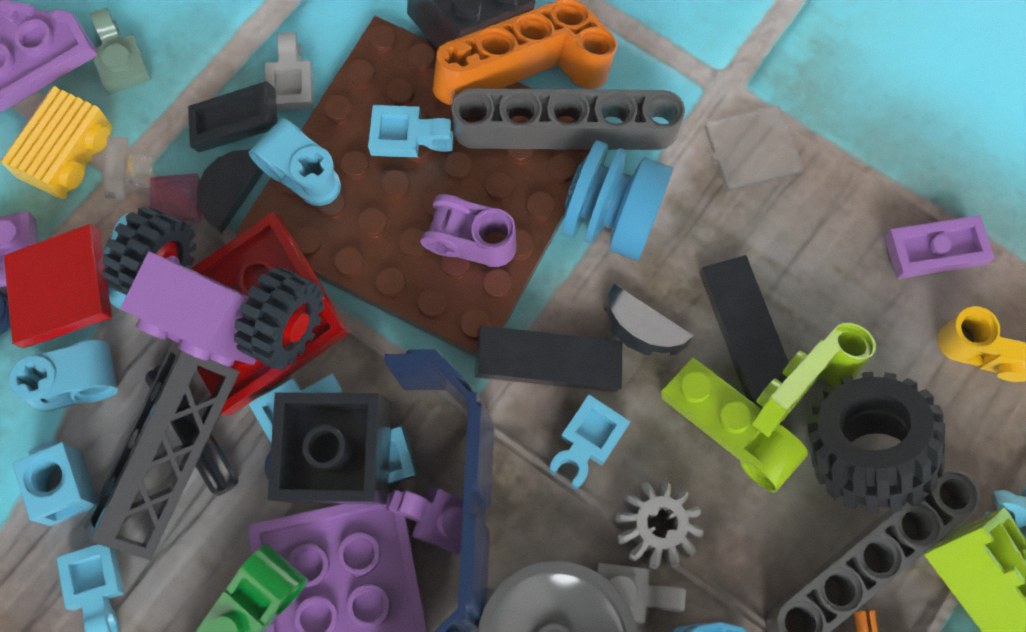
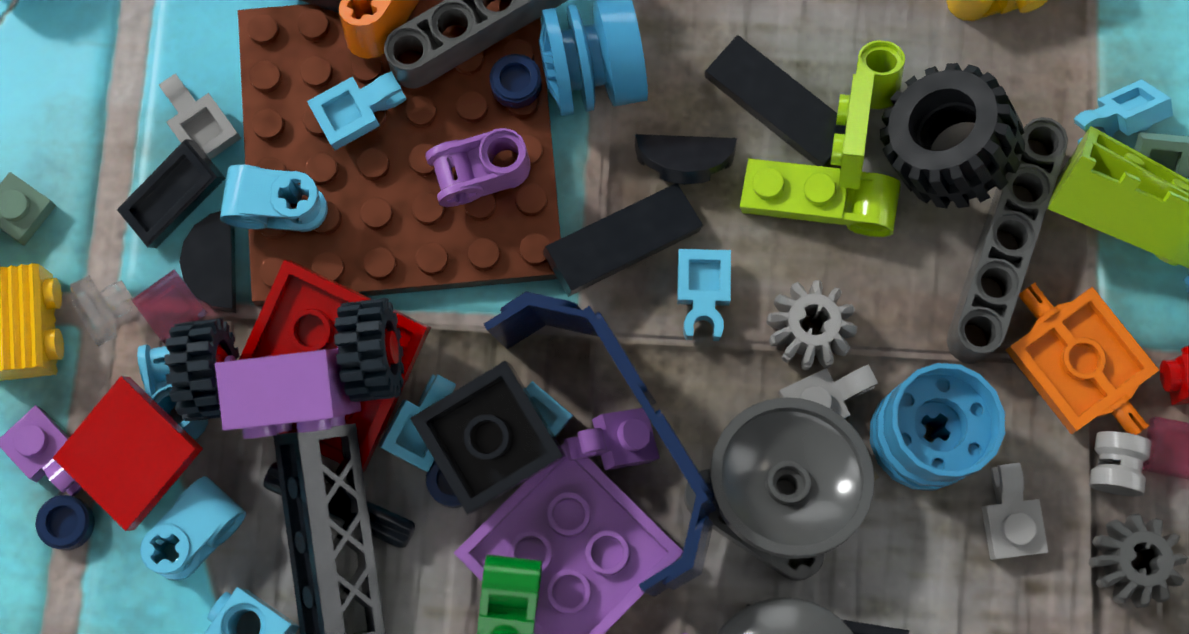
camera: 30 degrees left, 5 degrees up
(544, 185) = (515, 81): none -> dark blue tile

